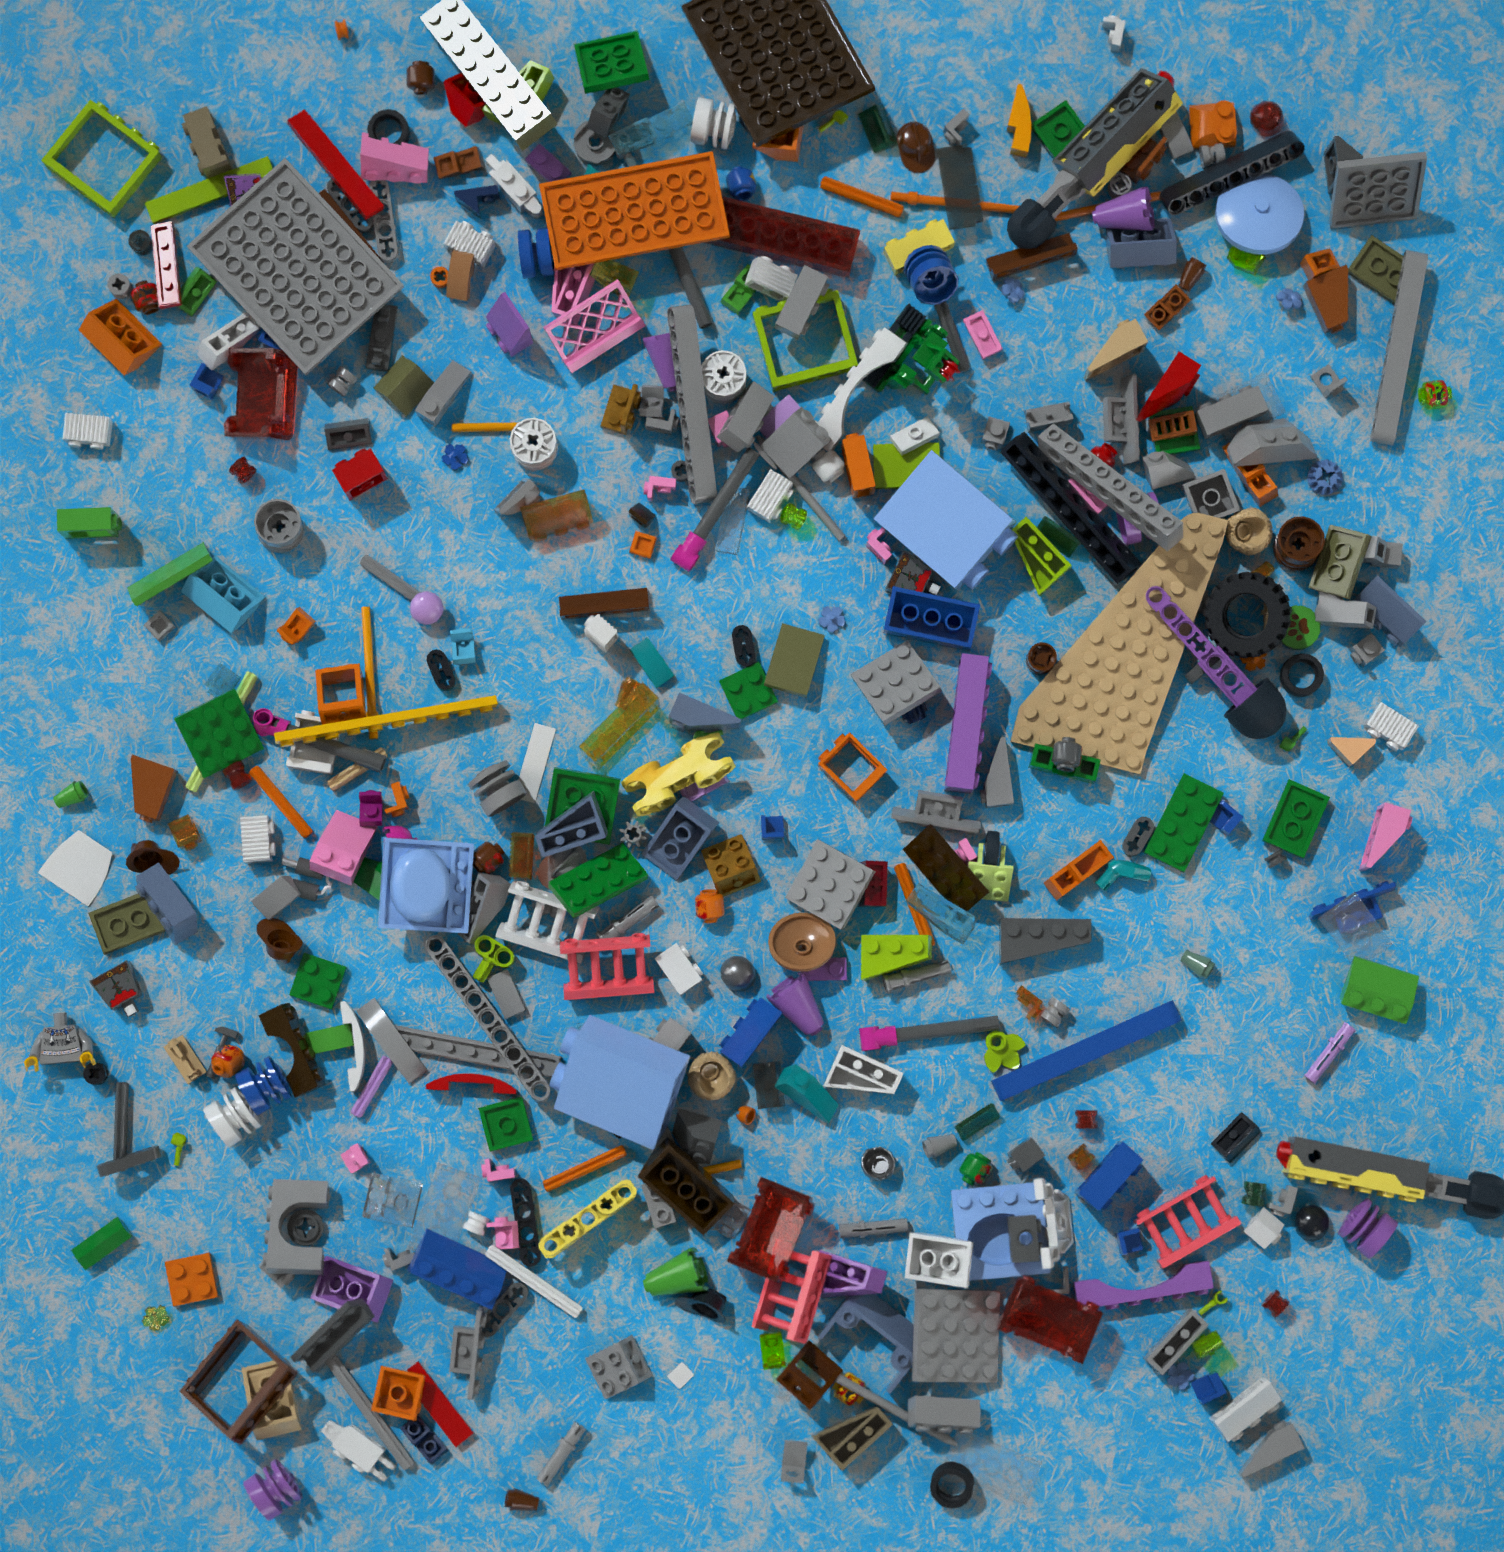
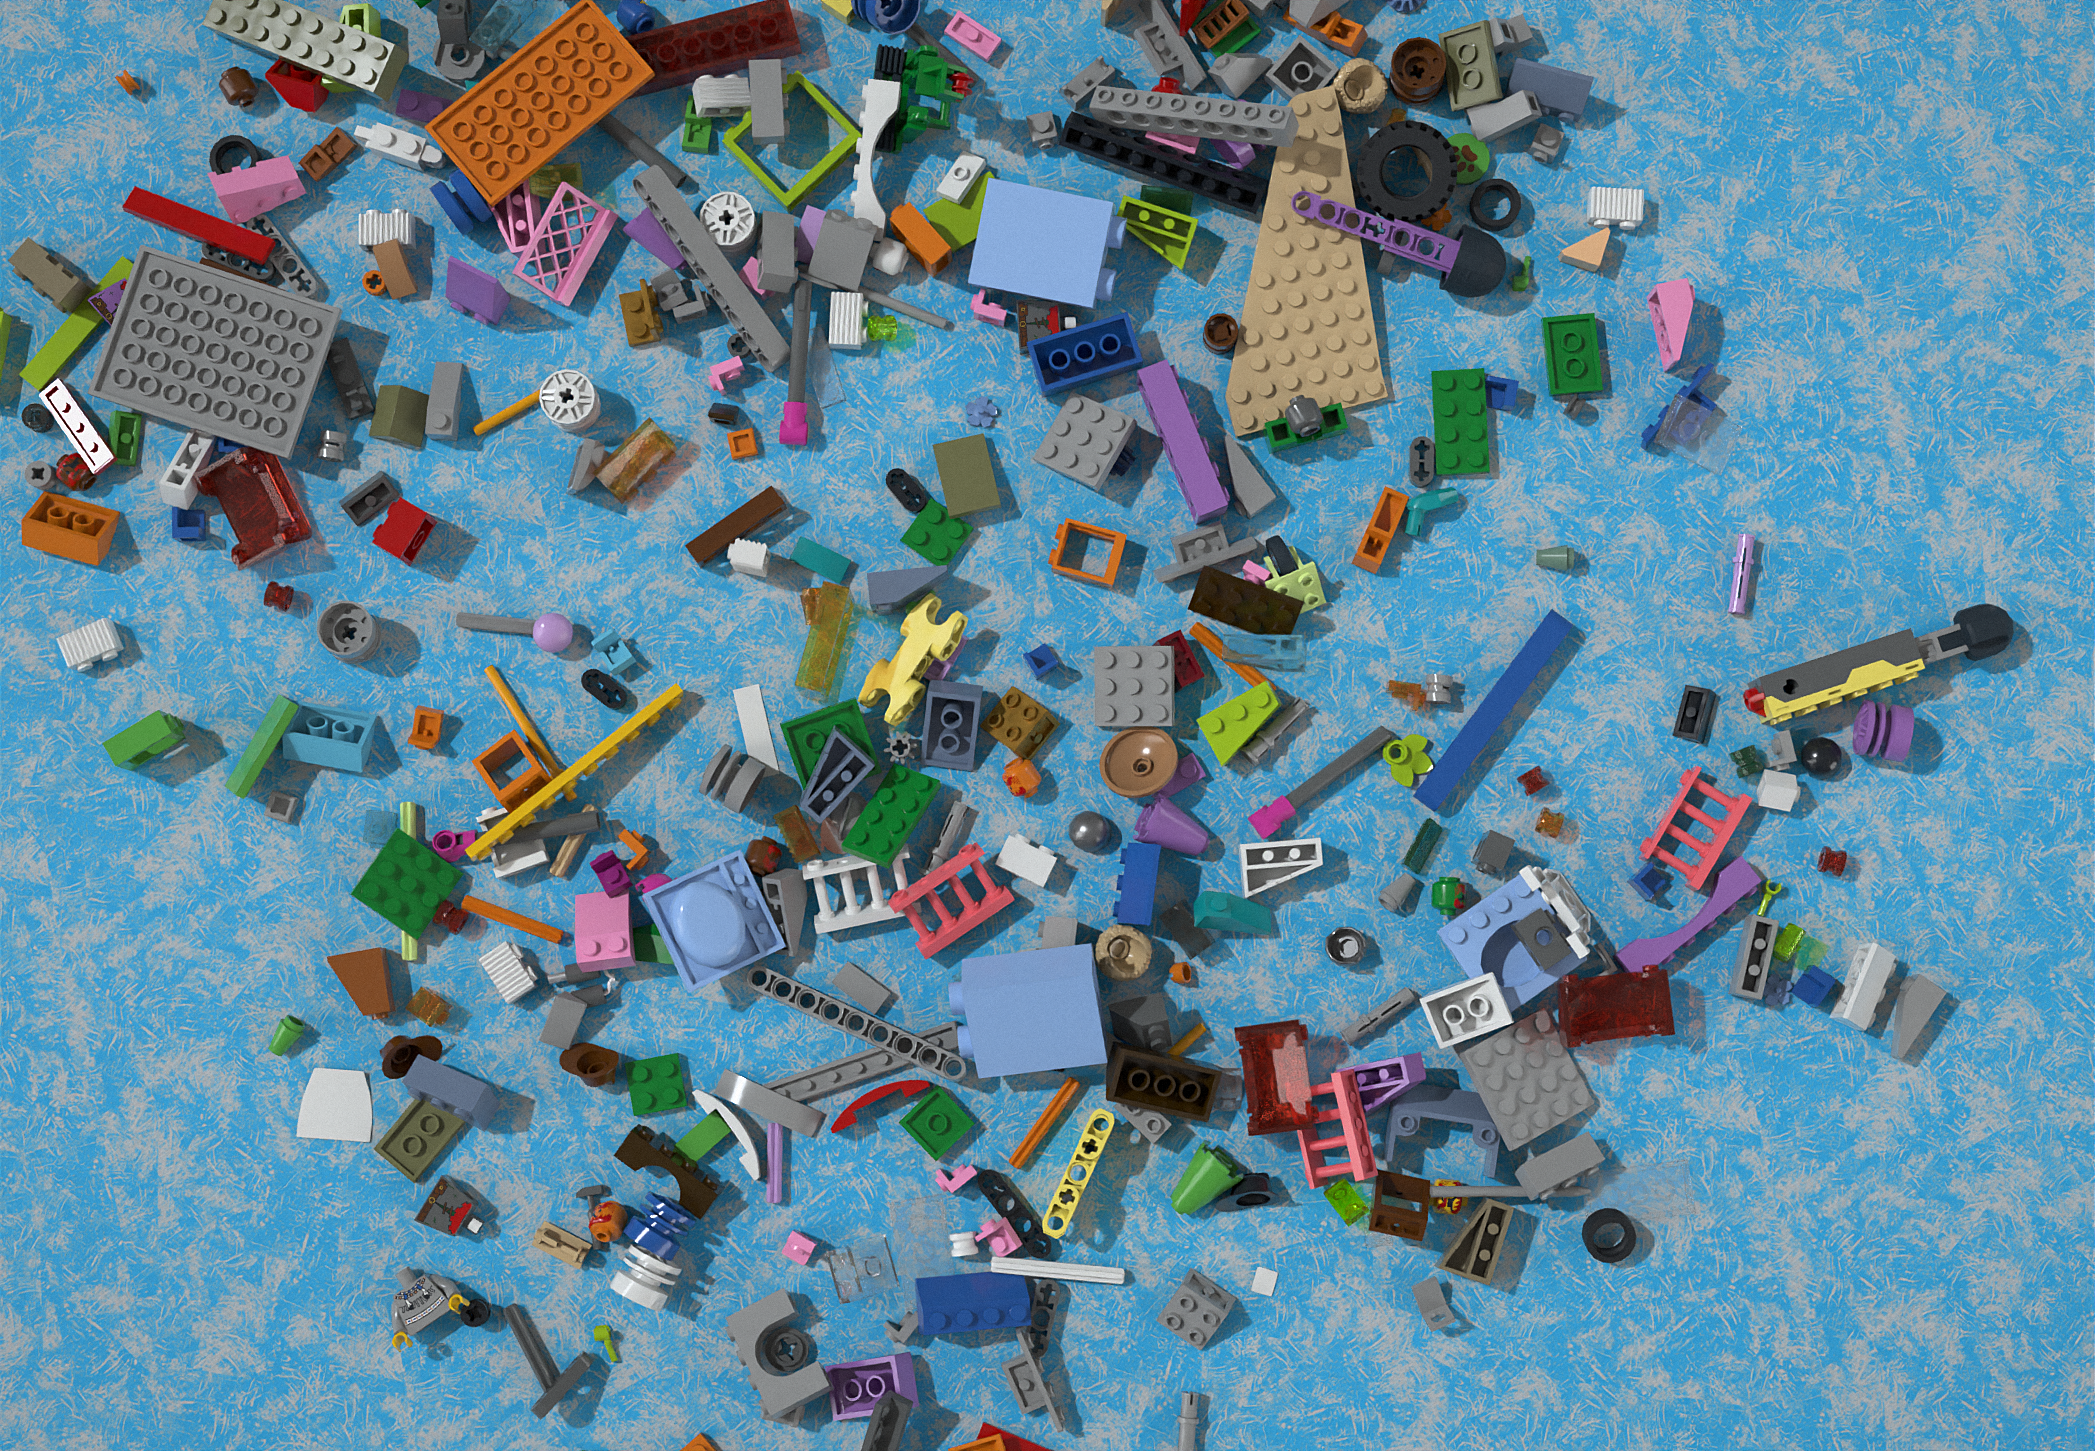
camera: 30 degrees left, 0 degrees up
(455, 456) = (494, 460): blue plant -> none
(470, 197) = (361, 182): dark blue slope -> none
(490, 958) = (824, 959): lime beam -> none
(1034, 936) = (1375, 622): dark grey wedge -> none
(1109, 1176) = (1591, 826): blue brick -> none
(1379, 989) = (1756, 481): bright green slope -> none

